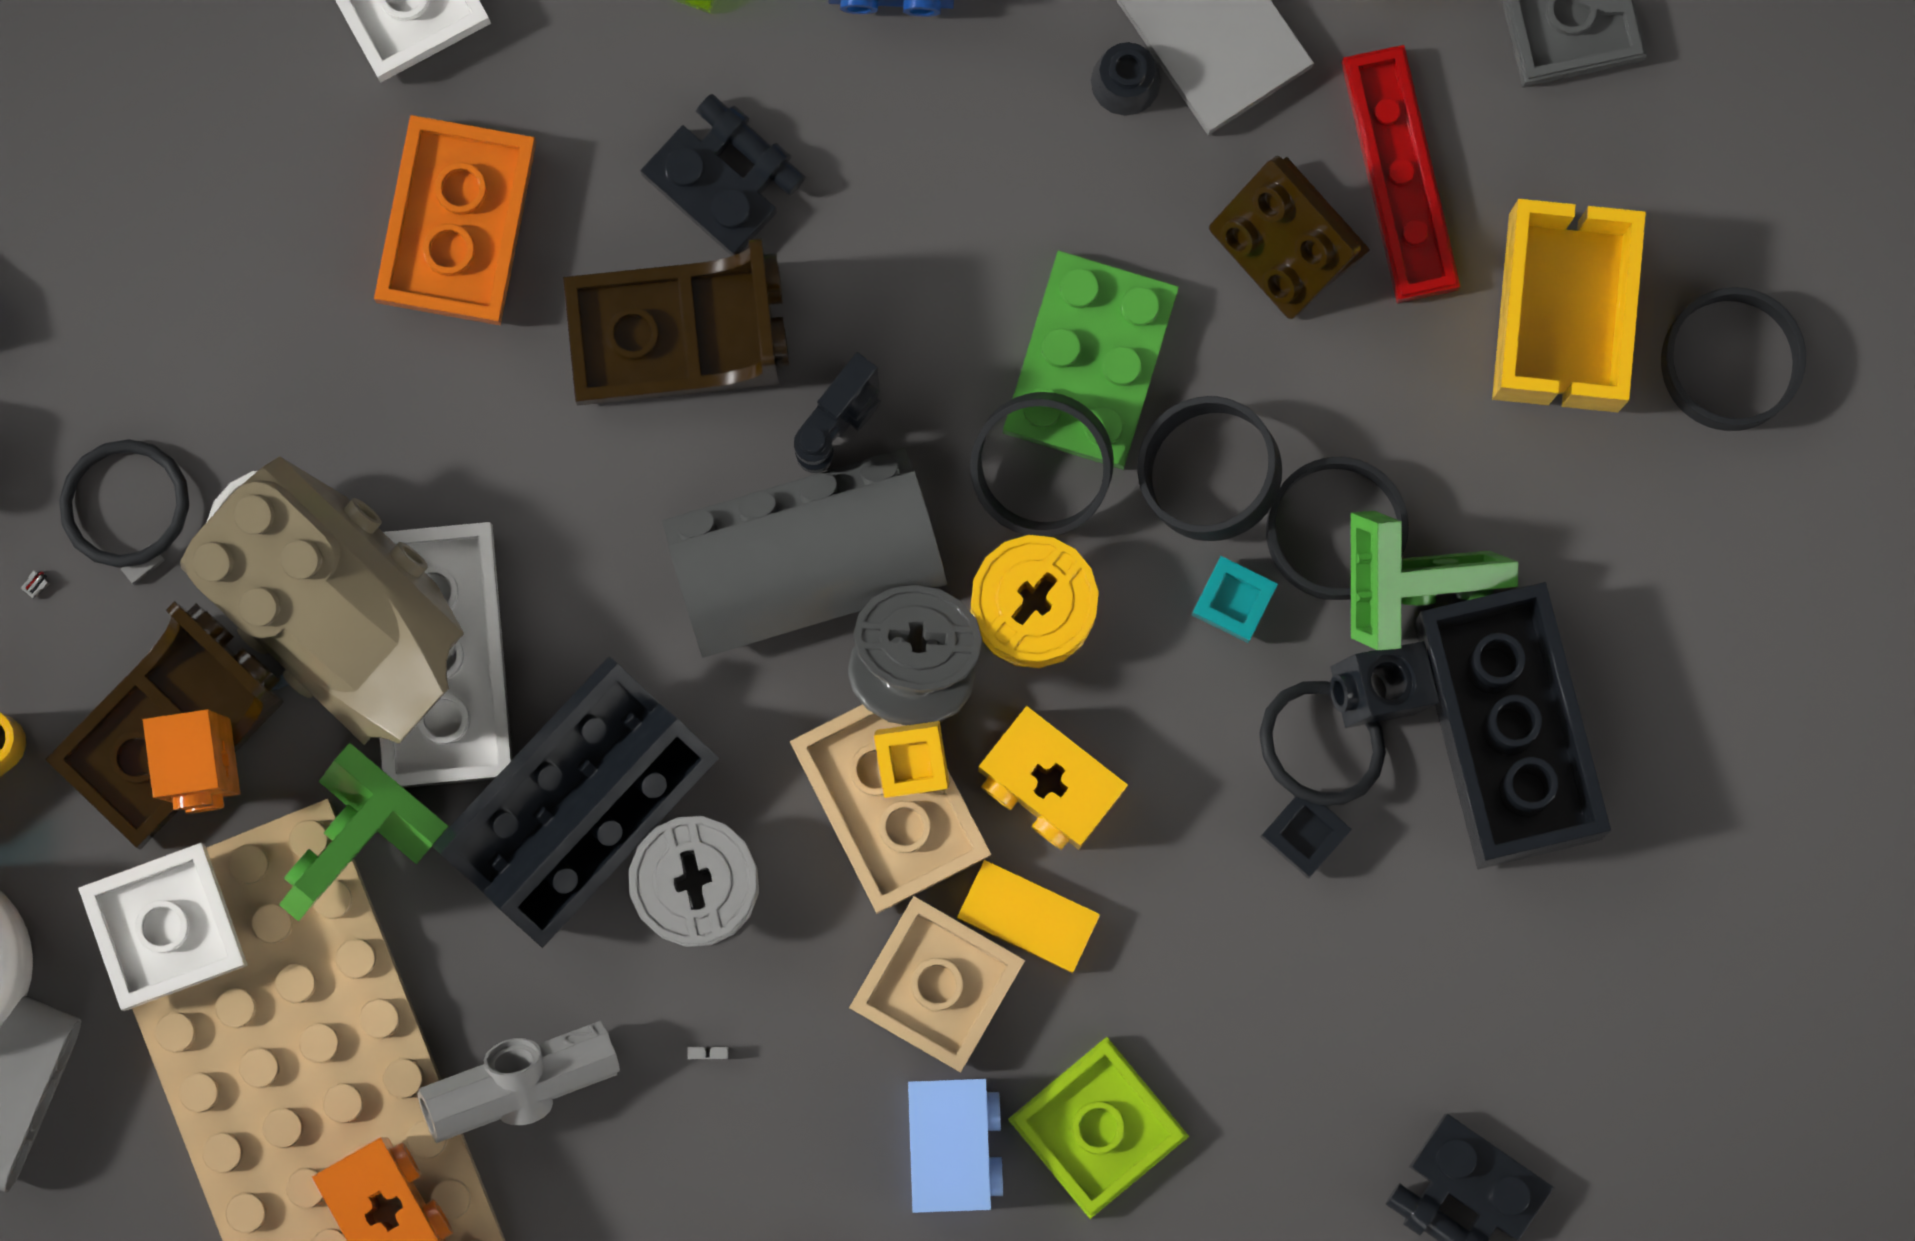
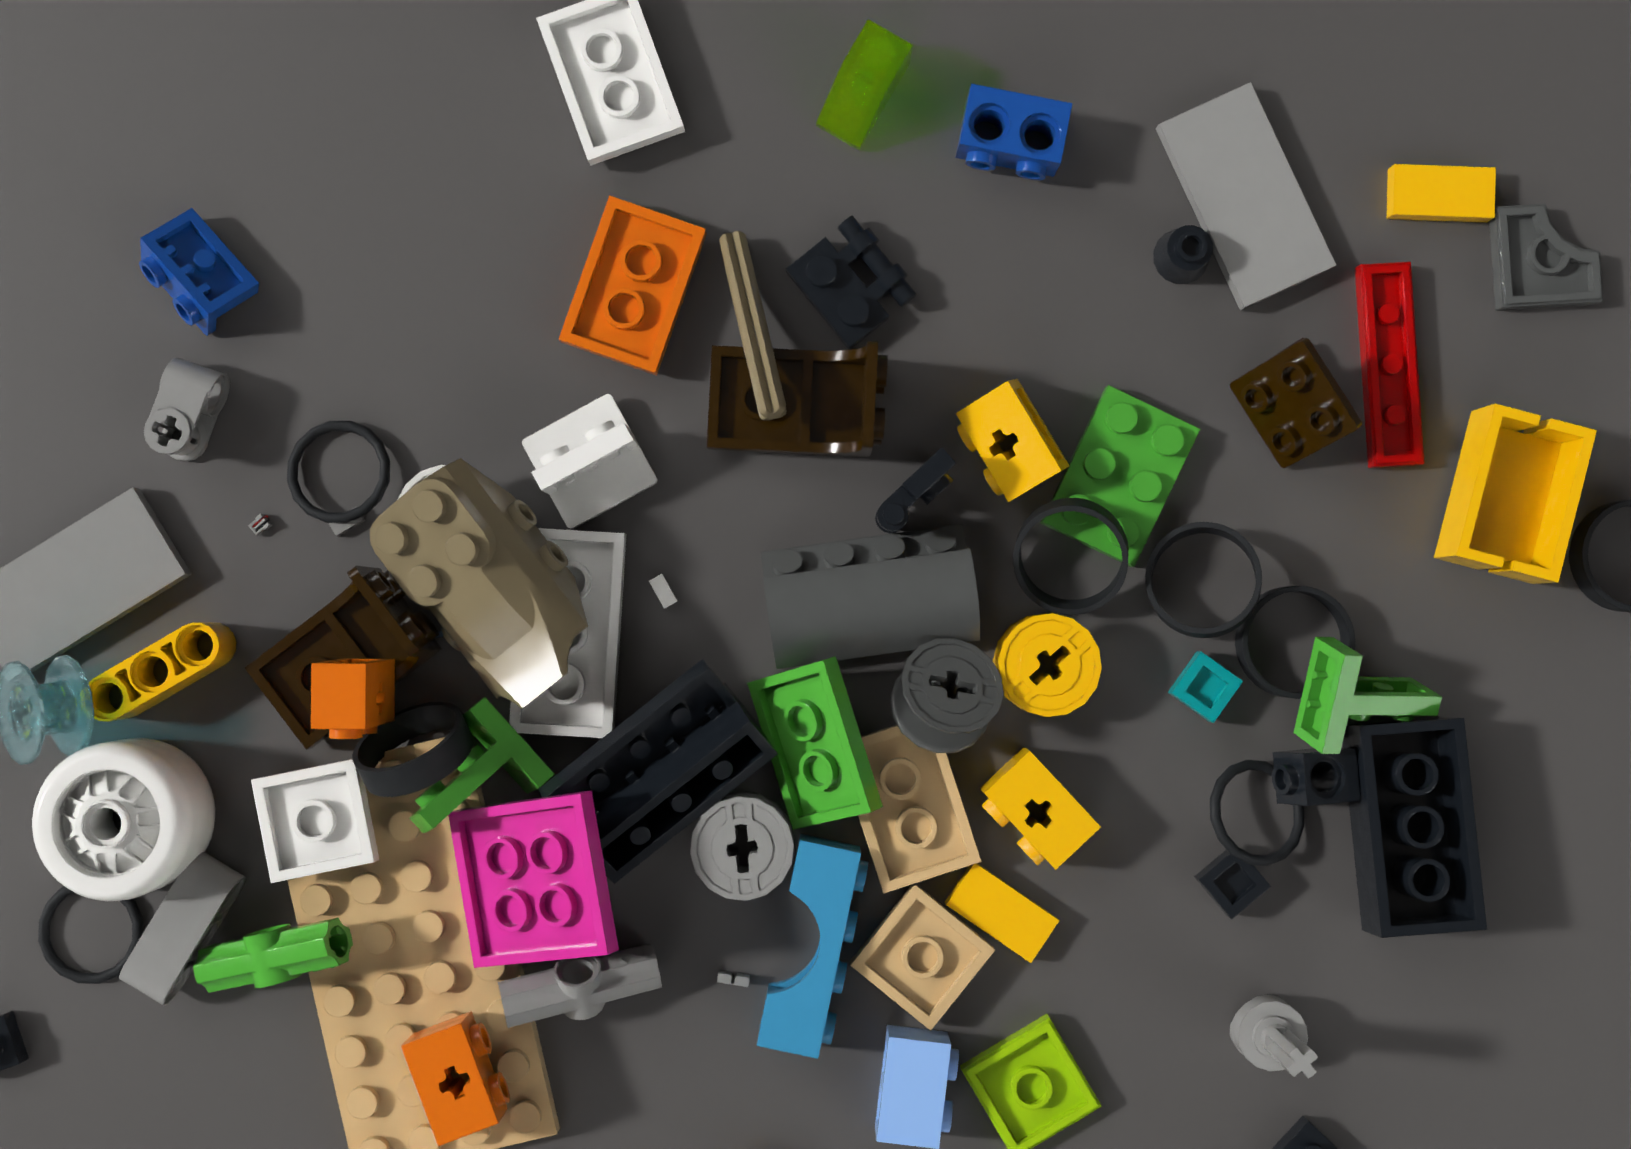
camera: 10 degrees right, 5 degrees up
(133, 1103) = (273, 955): none -> bright green piece
(282, 839) = (423, 770): none -> black tyre
(434, 442) = (589, 461): none -> white bracket
(442, 951) = (533, 880): none -> dark pink plate
(548, 588) = (663, 591): none -> white piece
(609, 245) = (752, 326): none -> dark tan axle
(767, 740) = (817, 742): none -> bright green plate
(794, 1074) = (797, 1008): none -> dark azure arch
(911, 759) = (931, 780): yellow plate -> none
(978, 347) = (1008, 412): none -> yellow brick
(1380, 1011) = (1273, 1036): none -> light grey piece

